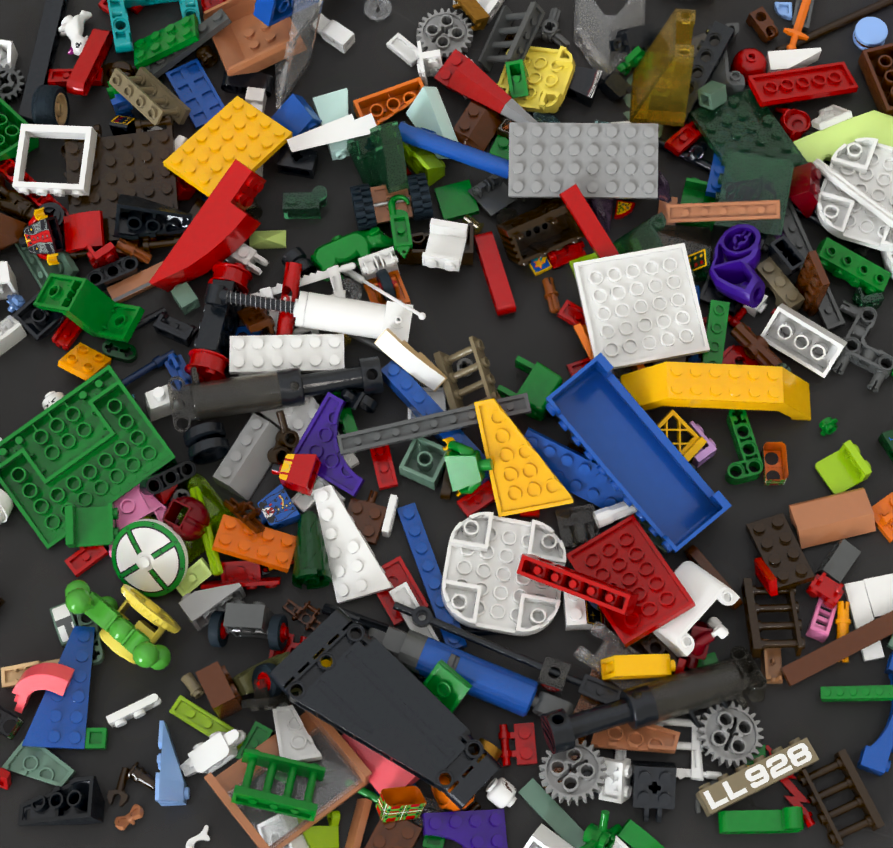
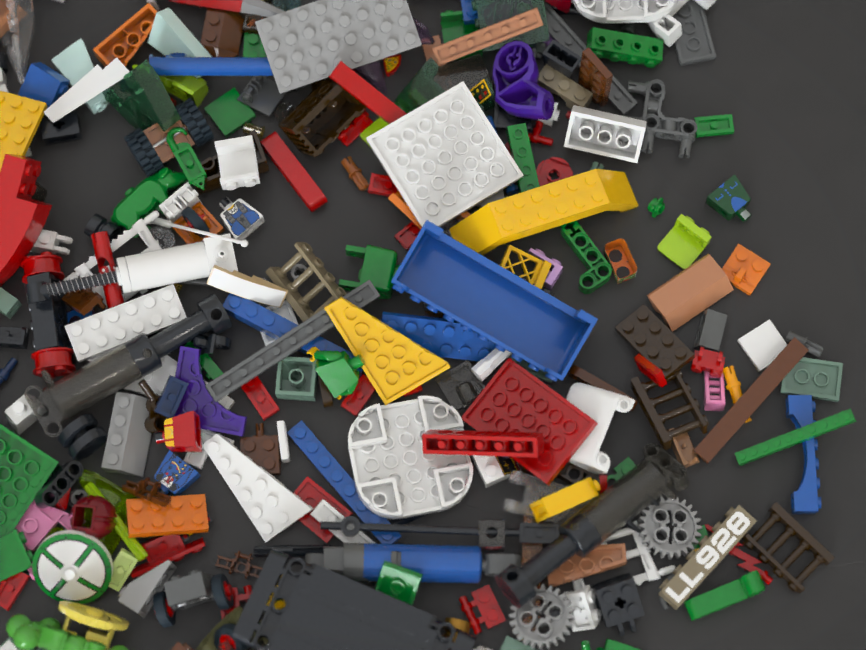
camera: 20 degrees left, 5 degrees up
(175, 367) = (24, 375): blue hinge -> none
(268, 239) = (63, 215): yellowish green slope -> none
(301, 435) = (171, 397): none -> dark blue plate
(304, 204) = (85, 168): clear green hinge -> none
(310, 557) = (222, 506): dark green cone -> none
(429, 297) = (240, 218): none -> torso
(540, 265) = (334, 149): tile -> none
(703, 636) = (614, 448): dark red torso -> none
(755, 346) = (564, 156): reddish brown piece -> none
(861, 615) = (748, 373): white tile -> none
(872, 300) = (652, 73): clear green bracket -> none

